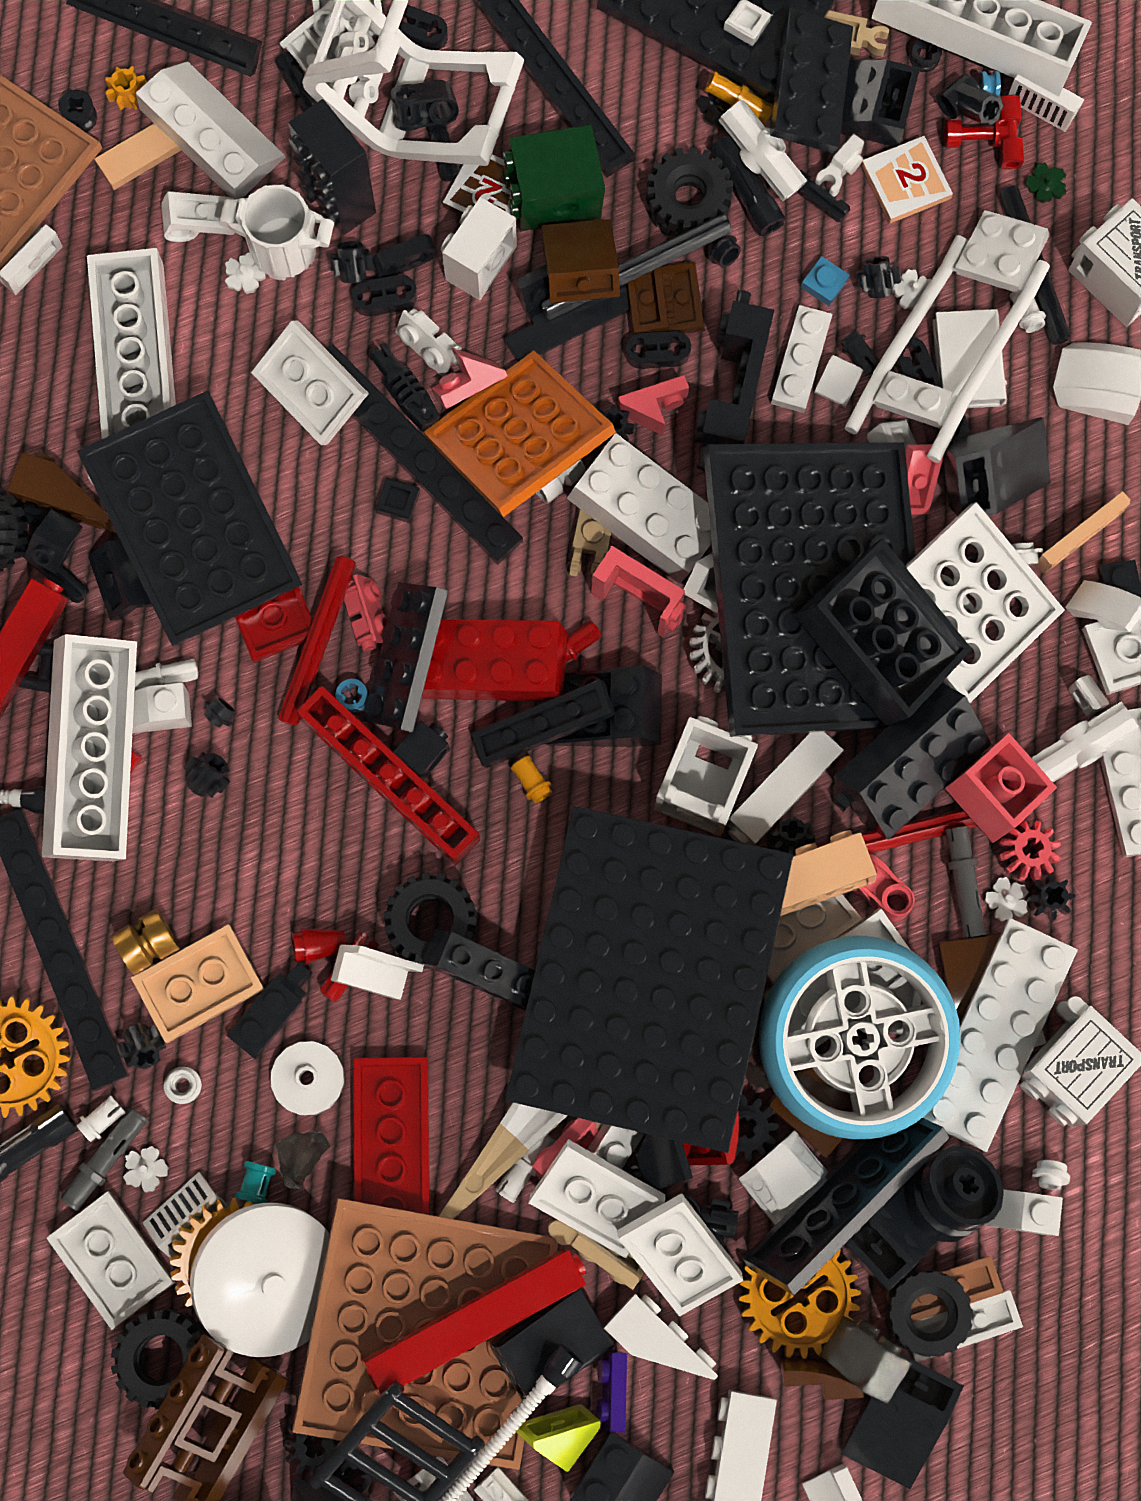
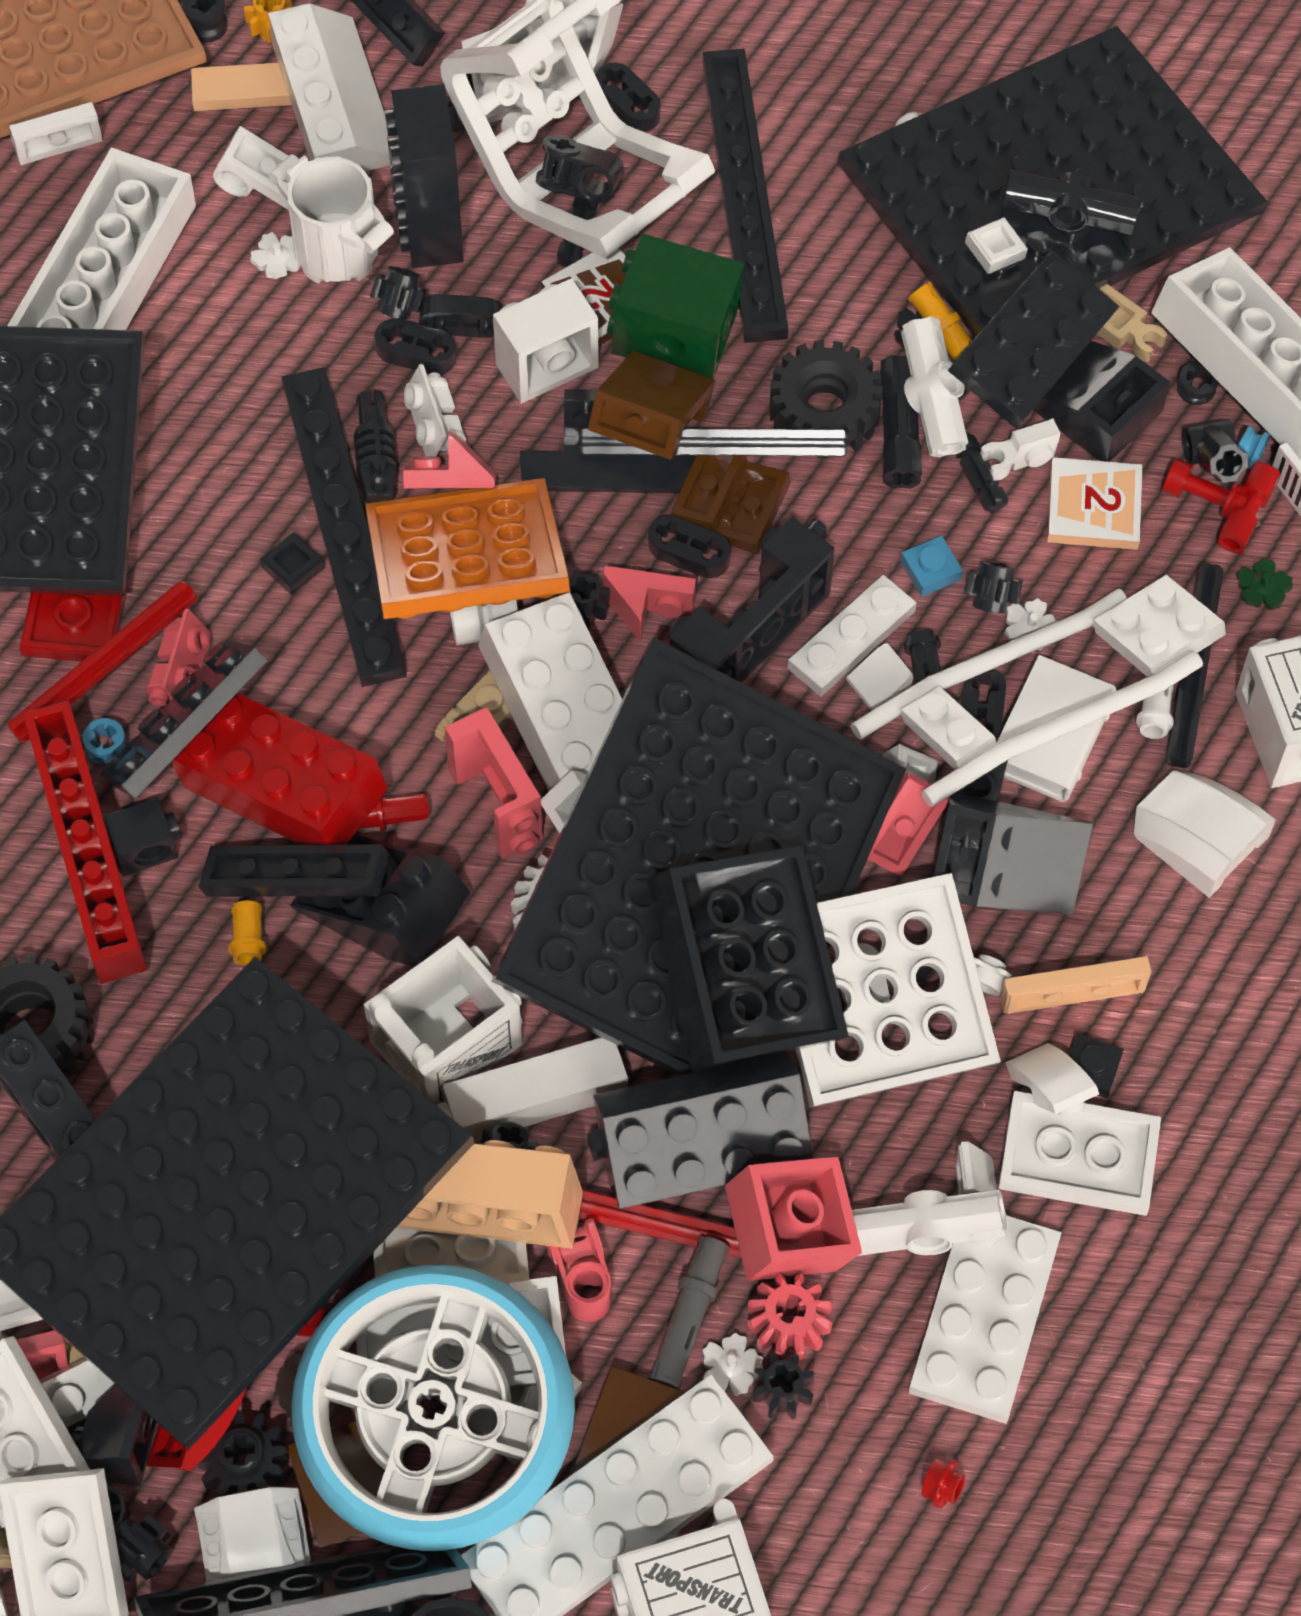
camera: 30 degrees right, 15 degrees down
(309, 382) = (270, 391): white plate -> none
(724, 251) = (830, 478): black plate -> none

